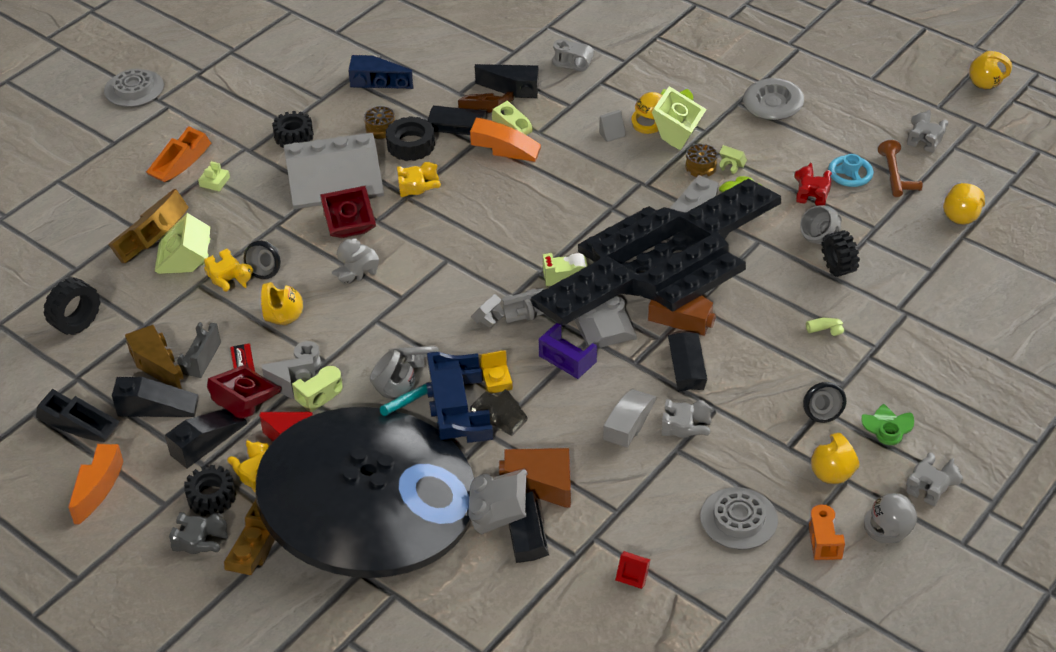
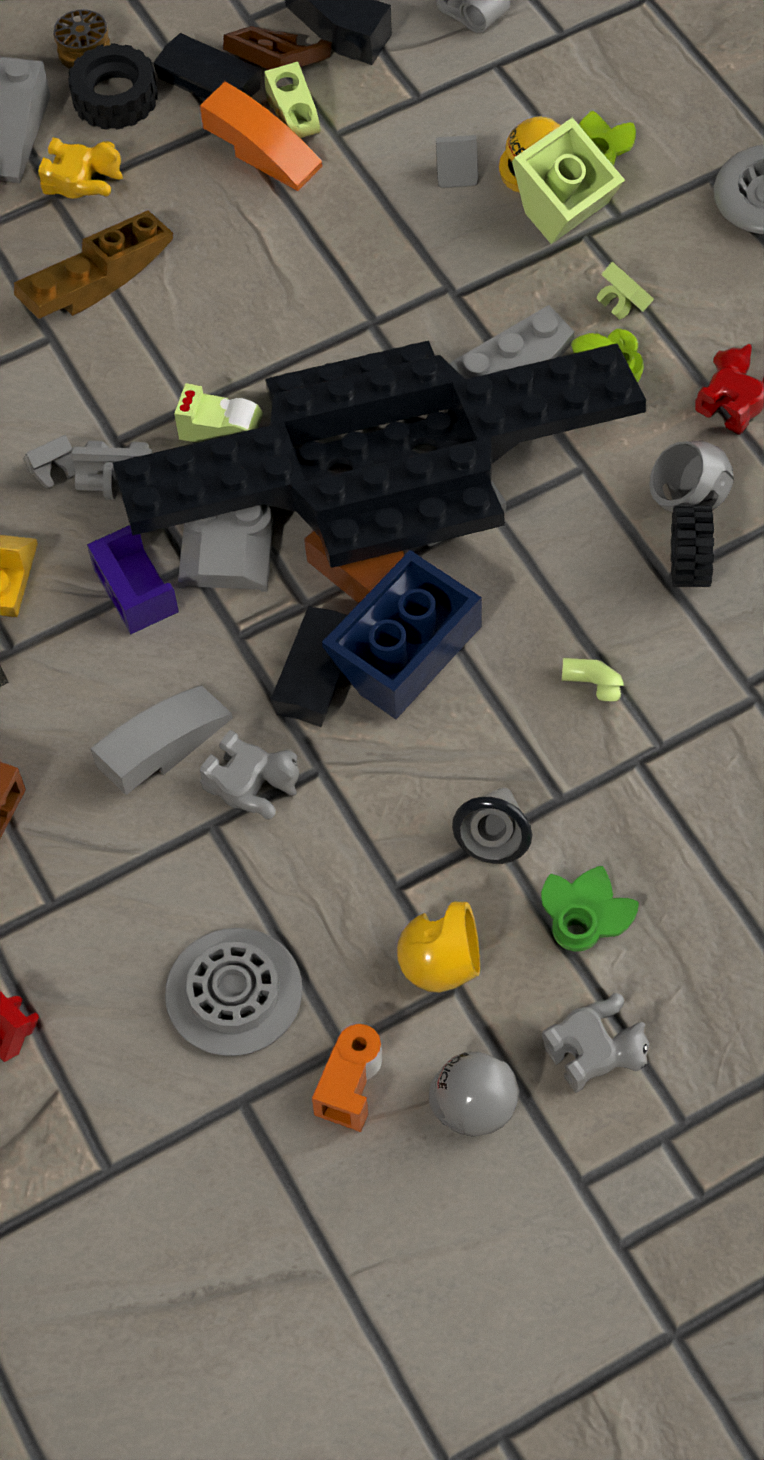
camera: 25 degrees right, 15 degrees up
(457, 219) = (103, 266): none -> pearl gold slope
(701, 160) = (580, 266): pearl gold wheel -> none
(726, 330) = (404, 633): none -> dark blue slope

